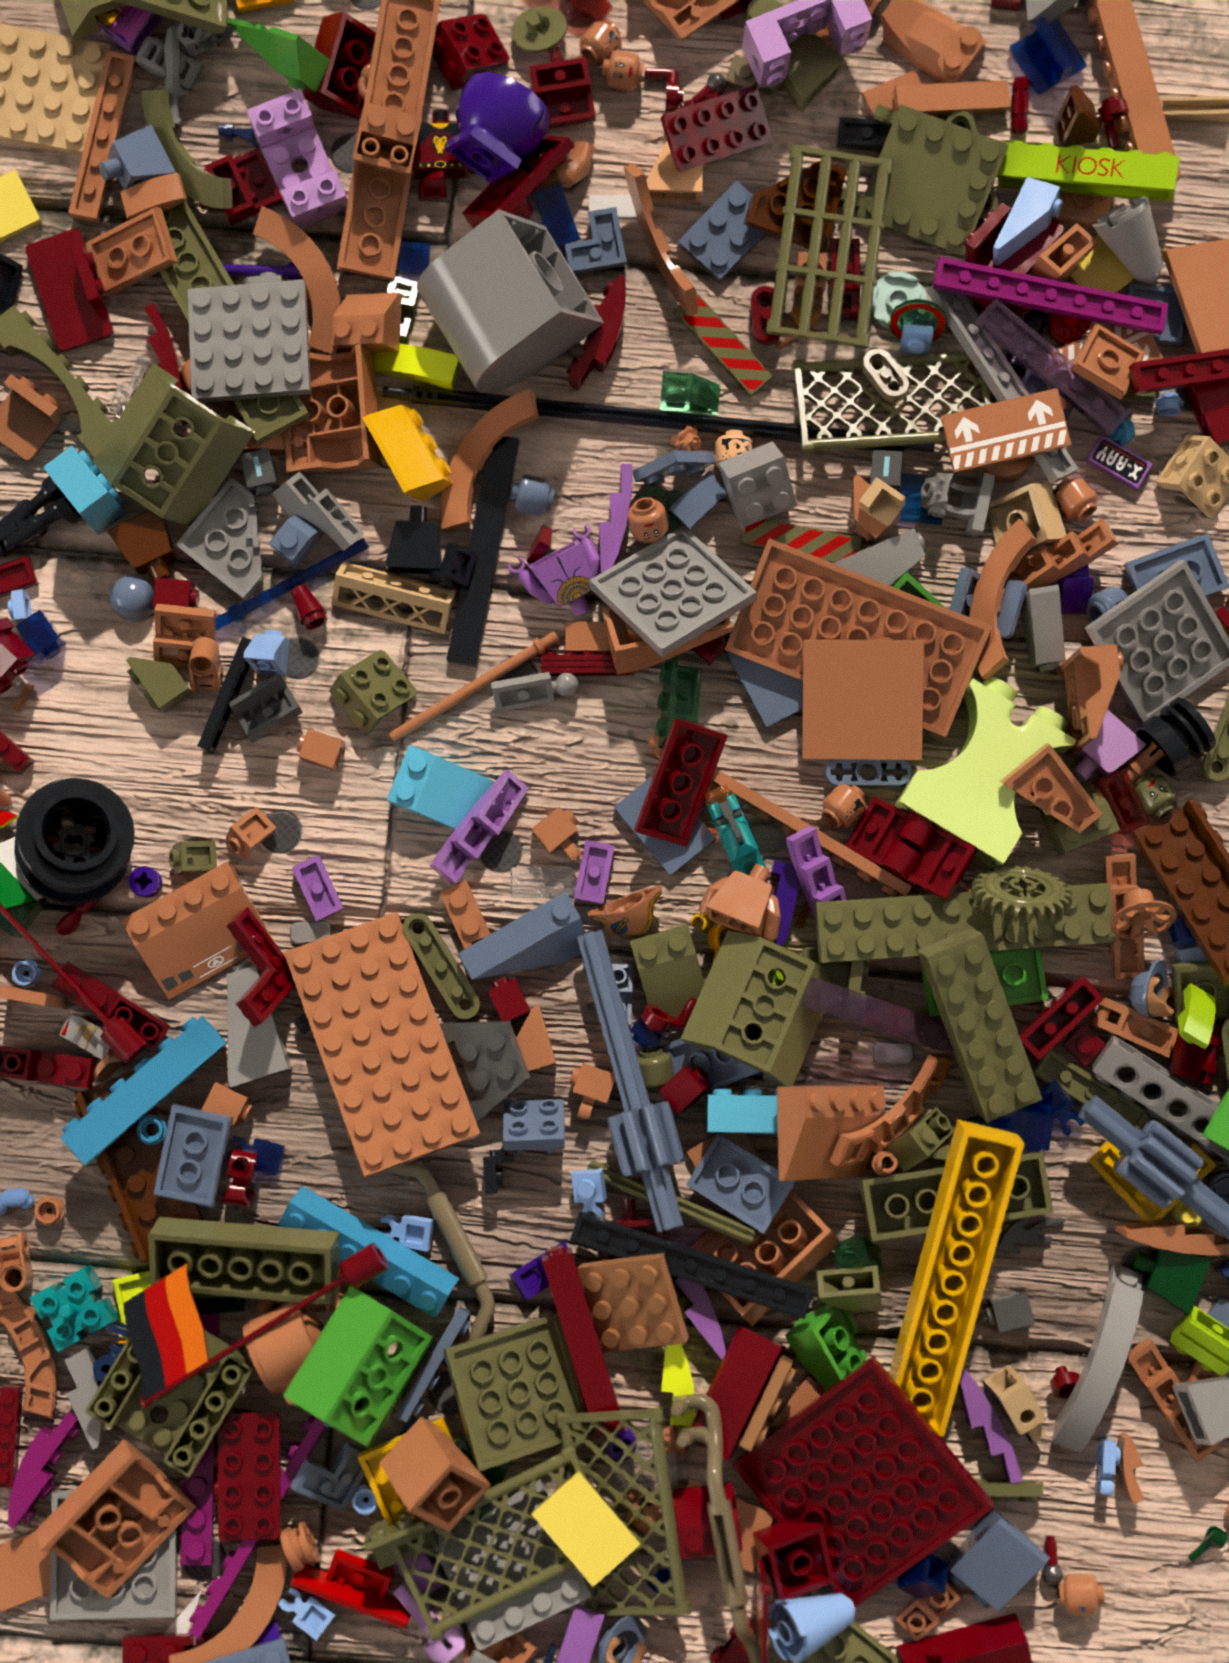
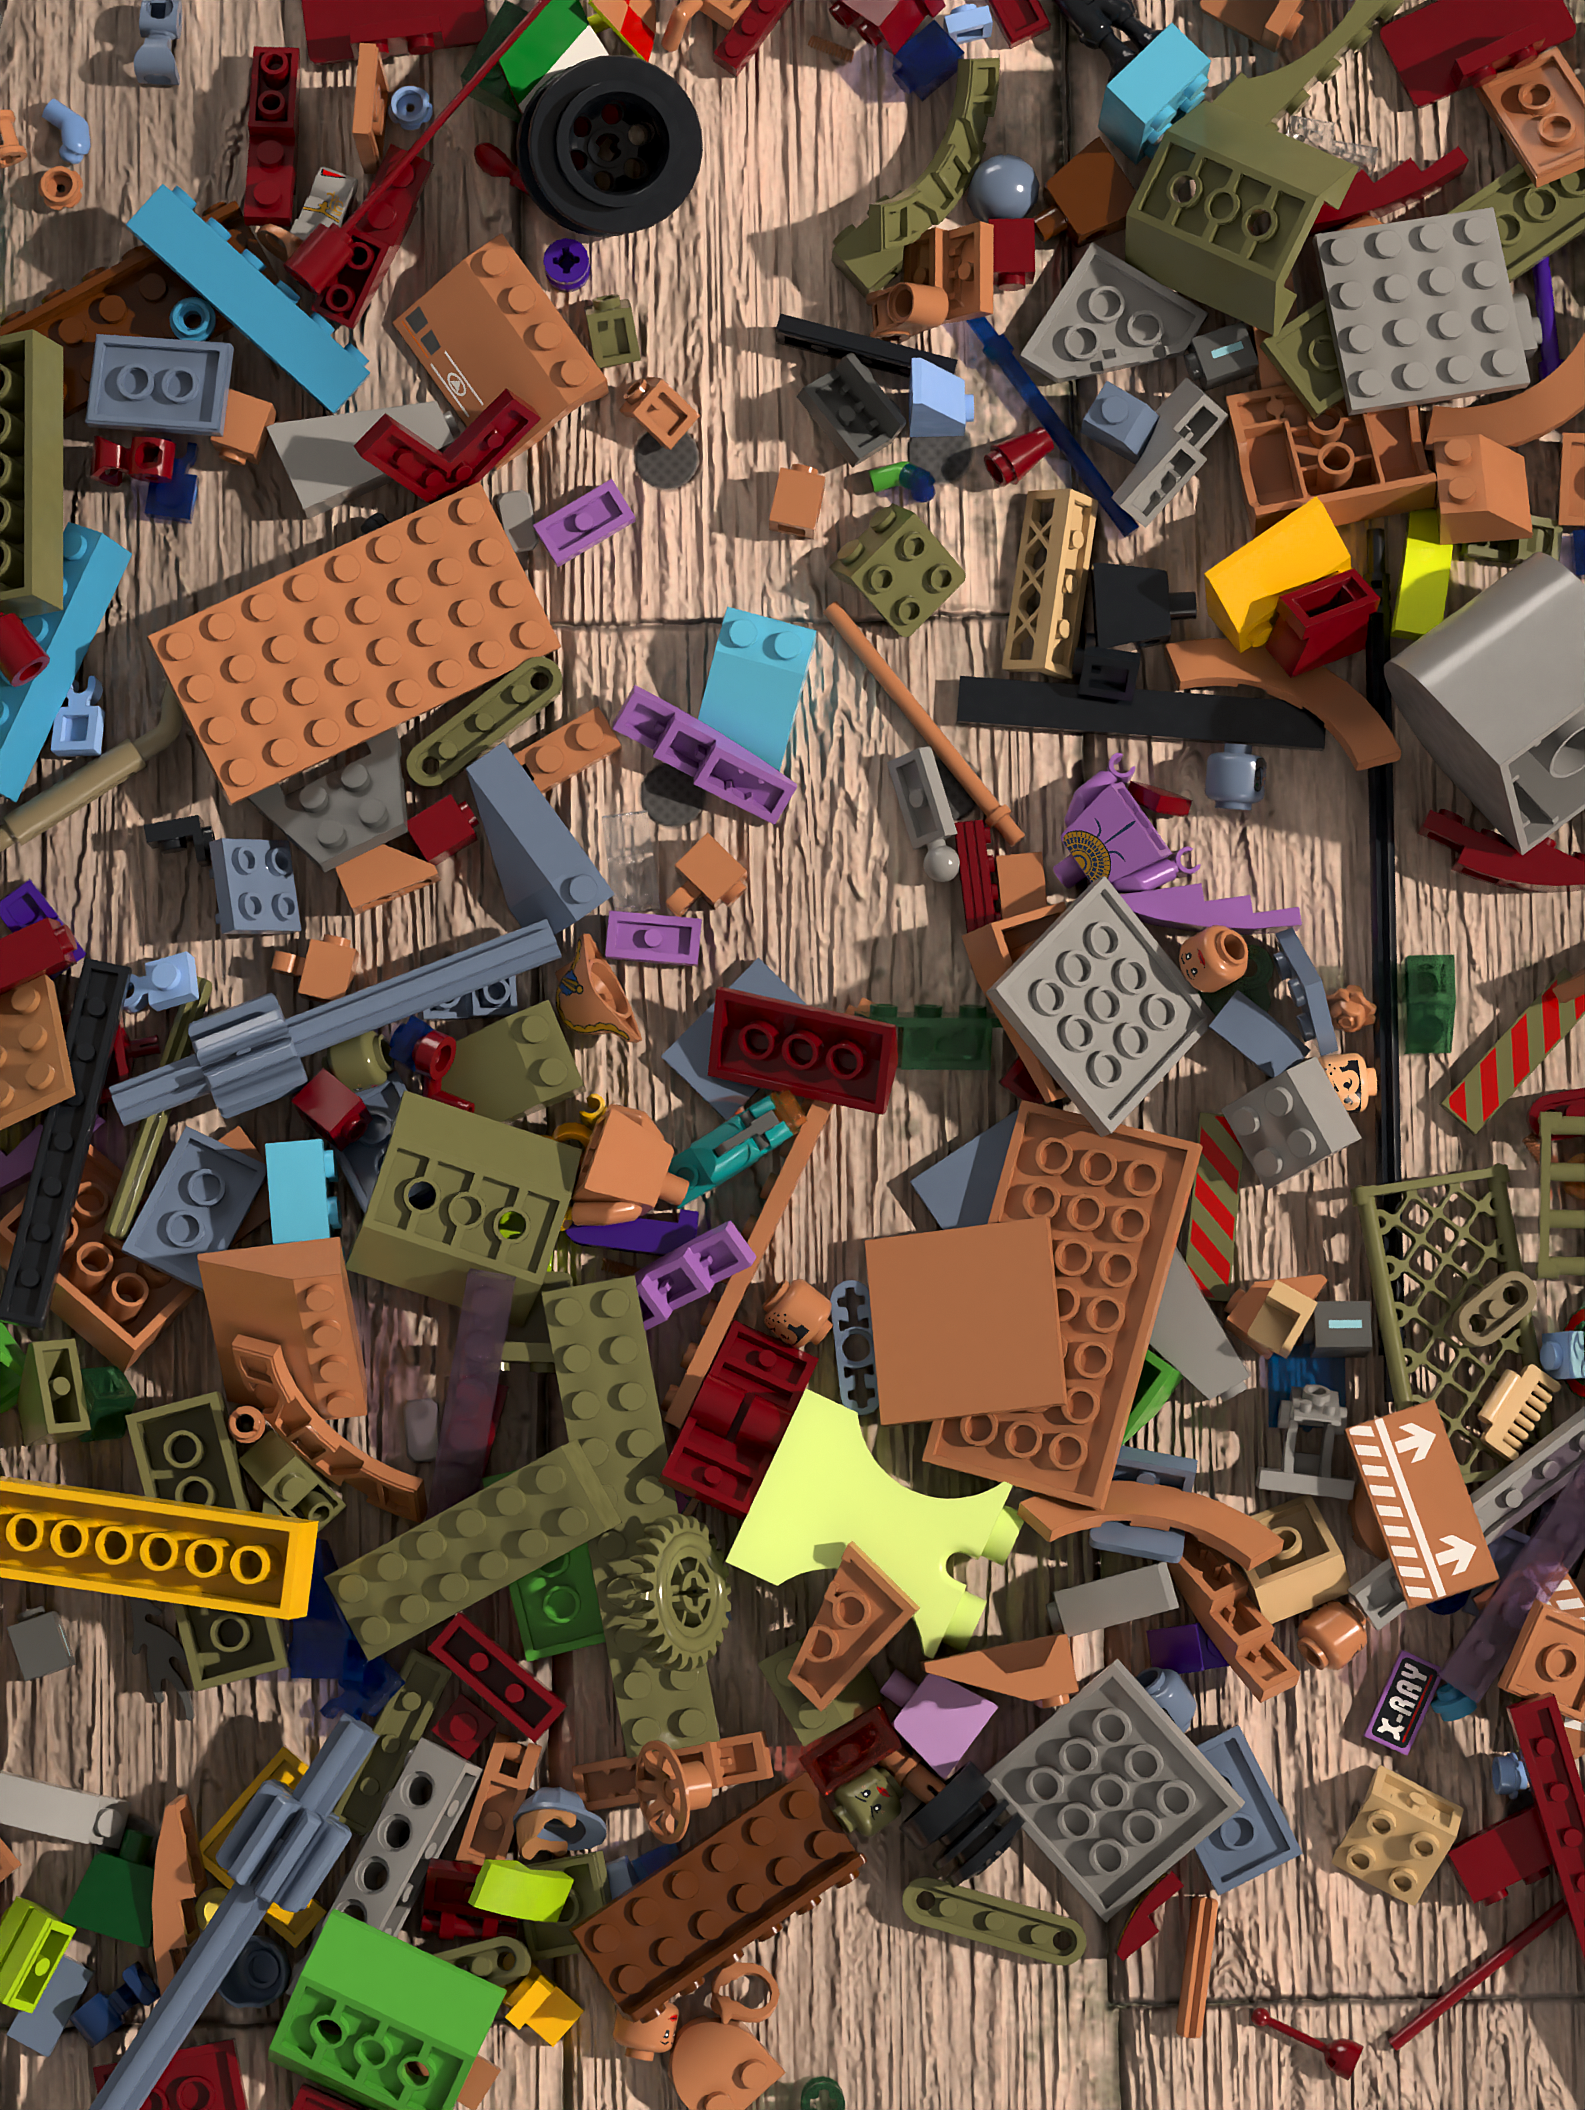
camera: 85 degrees right, 0 degrees up
(137, 645) = (948, 175): none -> olive tile
(311, 680) = (906, 475): none -> arm
(442, 427) = (1322, 622): none -> dark red hips
(943, 375) = (1505, 1404): none -> tan piece

